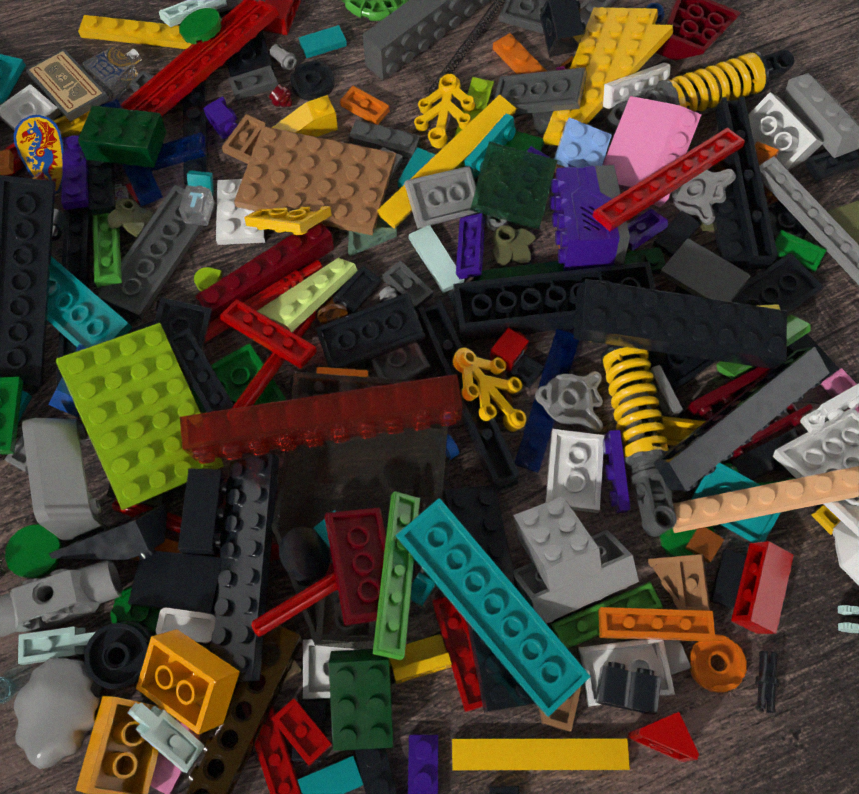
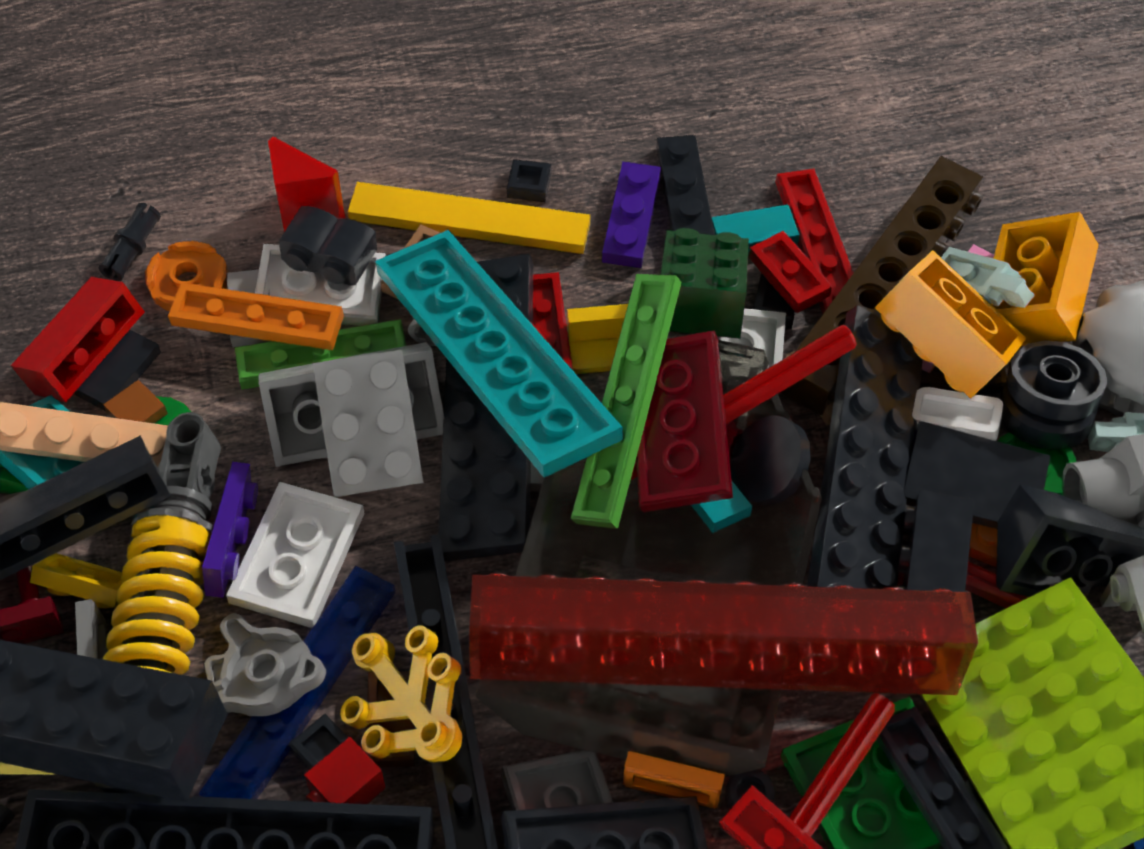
camera: 170 degrees left, 10 degrees down
(684, 580) = (190, 372): medium nougat wing -> none

